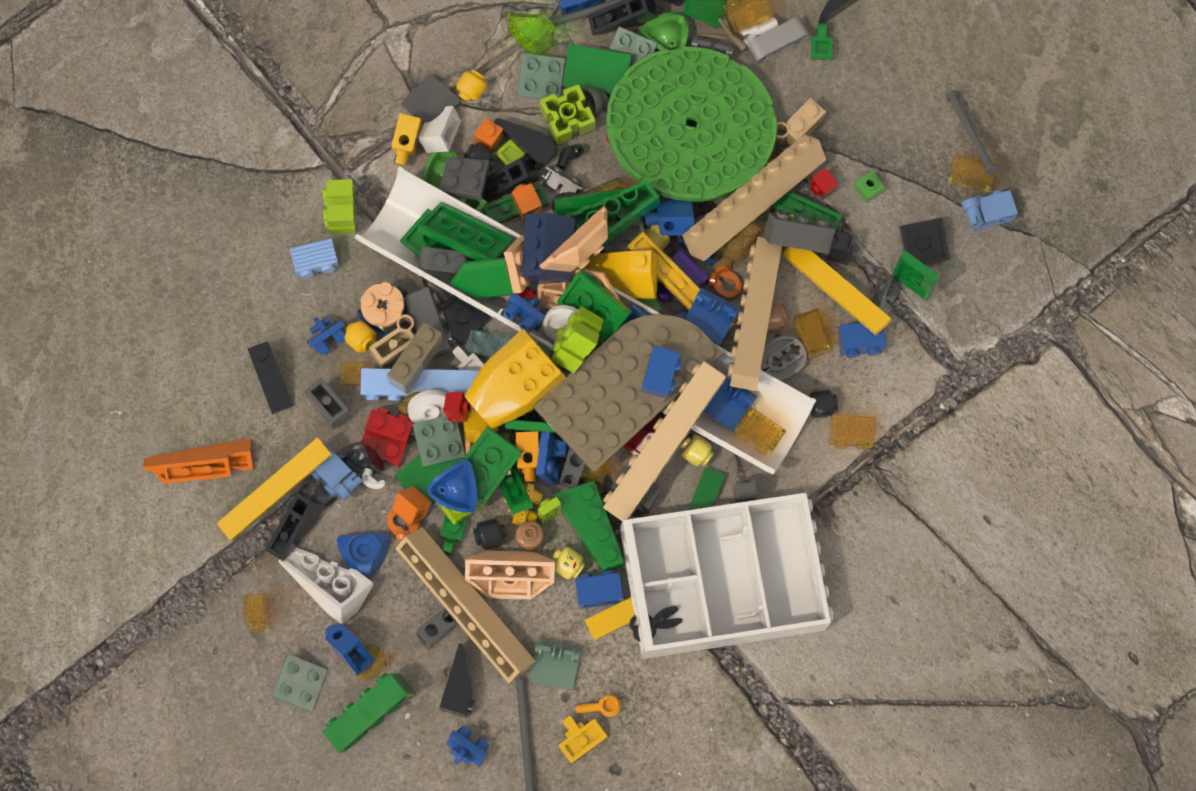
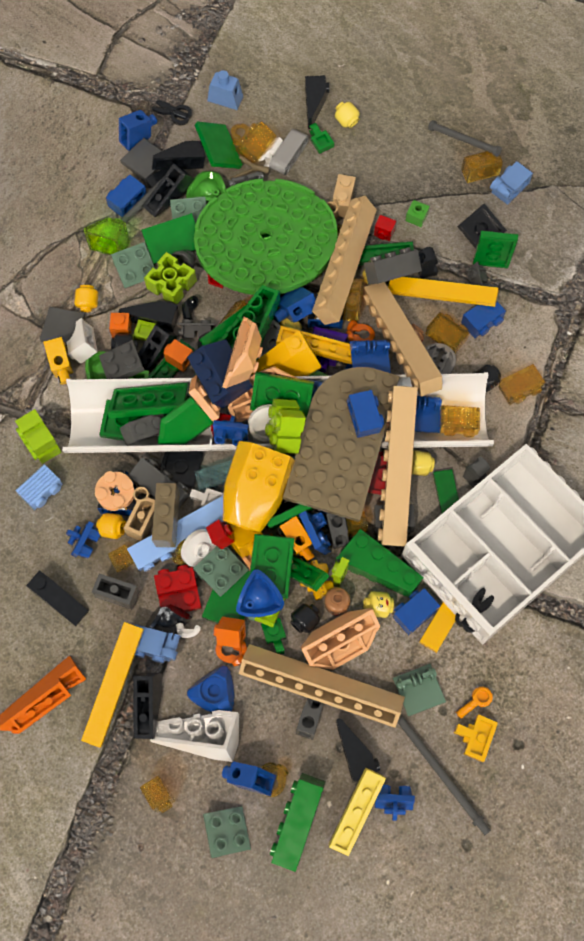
camera: 25 degrees left, 5 degrees down
(426, 735) = (357, 811): none -> light yellow plate
(867, 32) = (347, 114): none -> light yellow head

